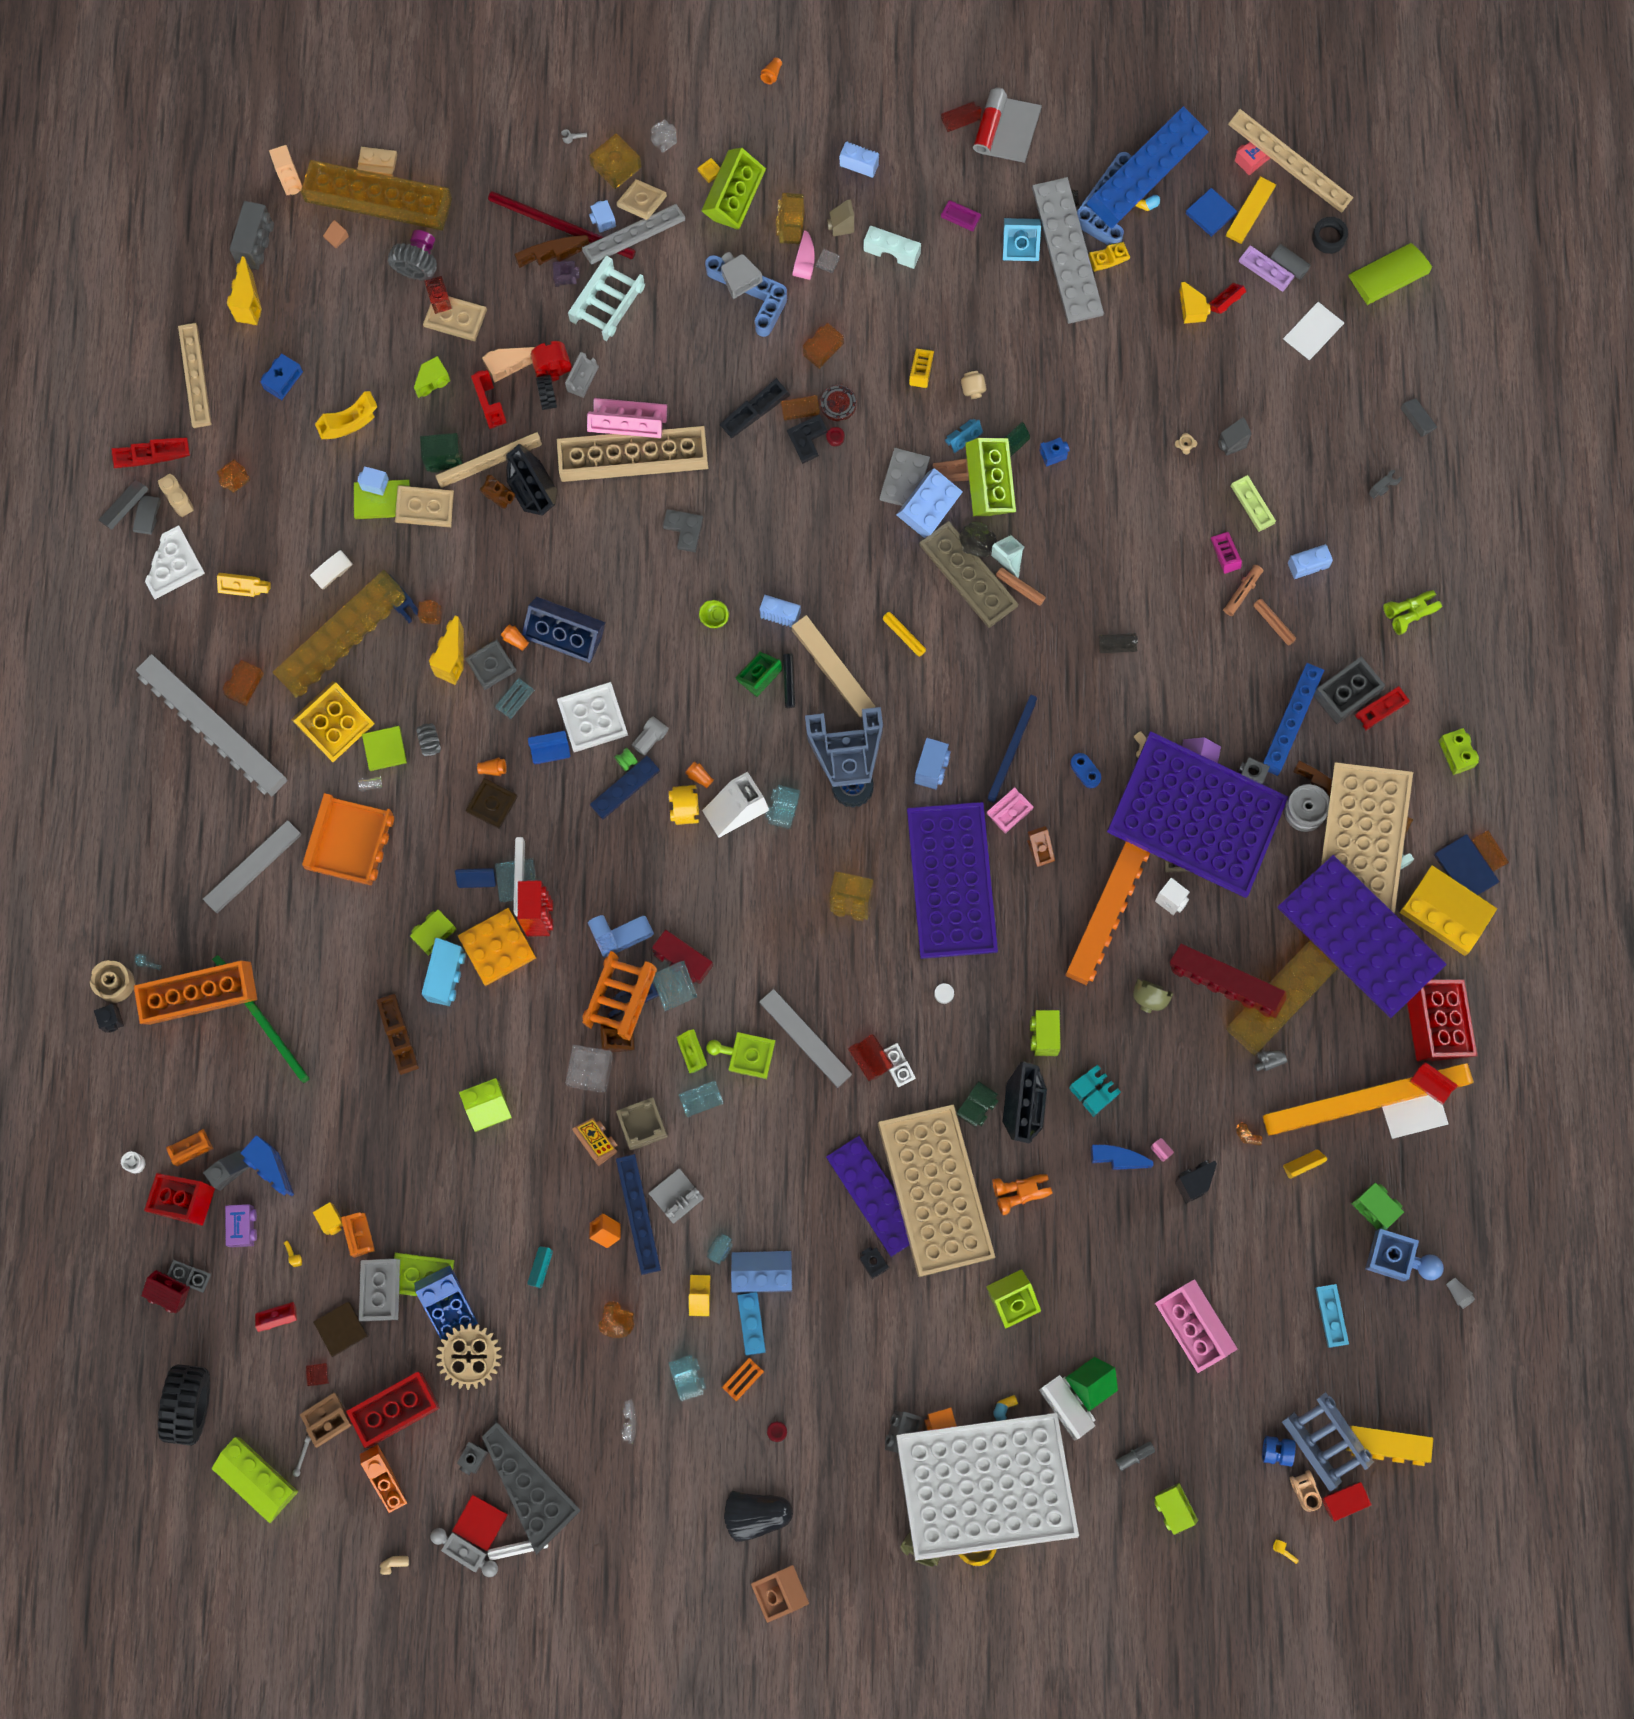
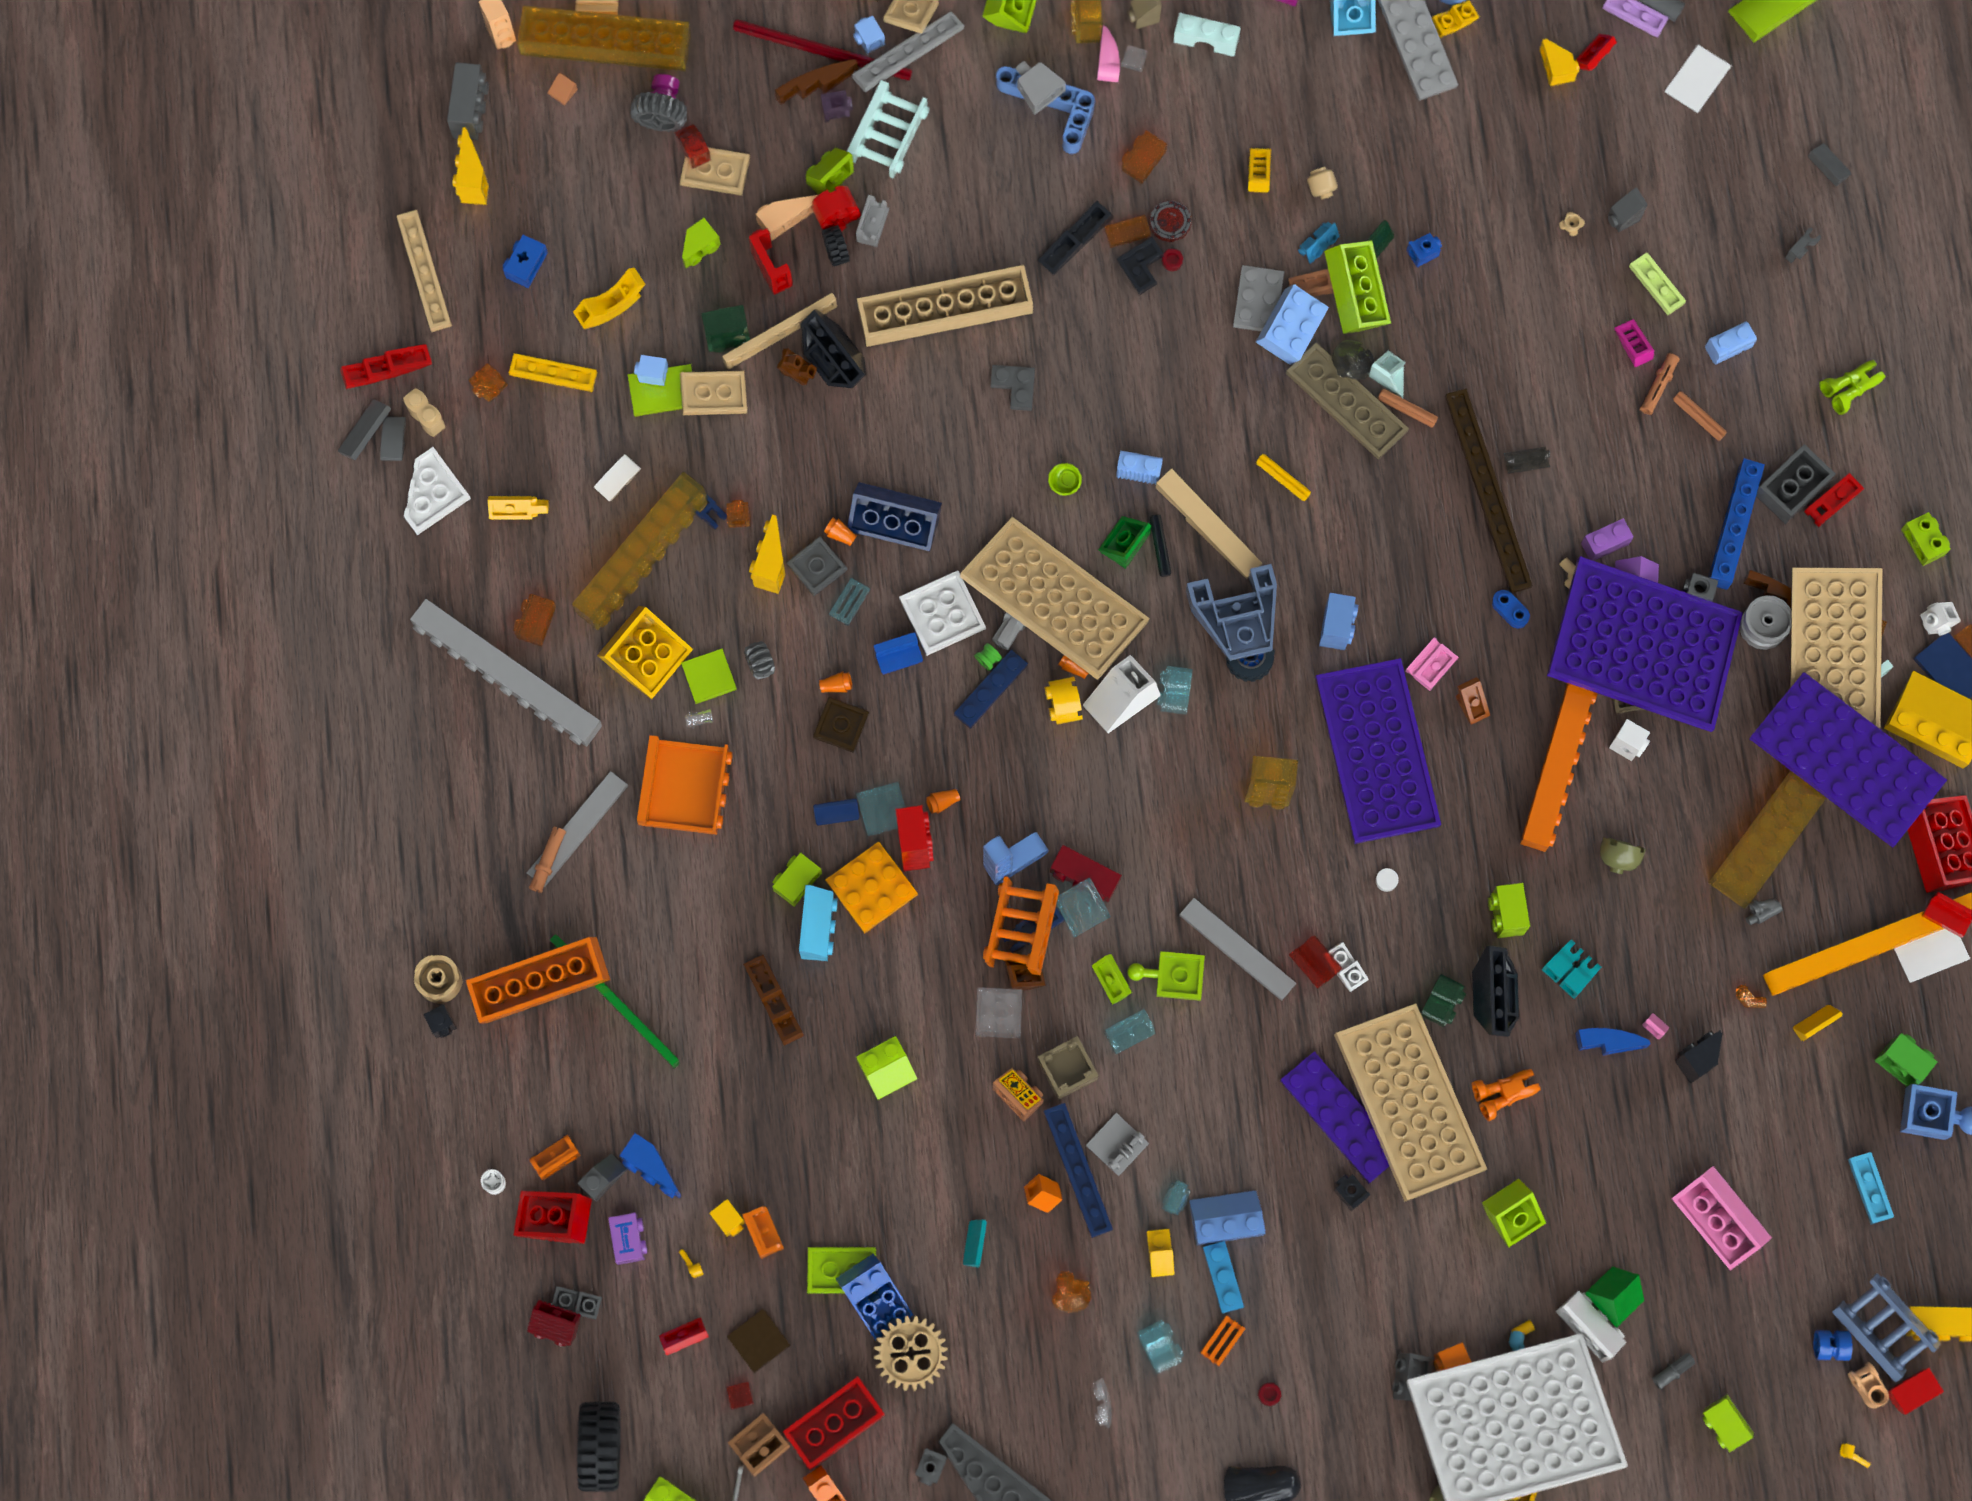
camera: 10 degrees left, 0 degrees up
(140, 961) = (465, 953): clear light blue hand -> none
(220, 890) = (544, 867): none -> nougat pin
(291, 474) = (553, 372): none -> yellow tile
(379, 1290) = (797, 1291): light grey plate -> none
(519, 868) = (887, 804): white tile -> none
(552, 328) = (830, 171): none -> lime slope
(568, 878) = (941, 800): none -> orange cone
(627, 418) = (933, 265): bright pink fence -> none
(690, 715) = (1054, 598): none -> tan plate
(1012, 749) = (1425, 594): dark blue tile -> none
(1080, 666) = (1488, 491): none -> dark brown plate
(1177, 720) = (1607, 540): none -> medium lavender brick
(1228, 981) = (1705, 827): dark red brick -> none
(1461, 822) = (1940, 618): none -> white brick

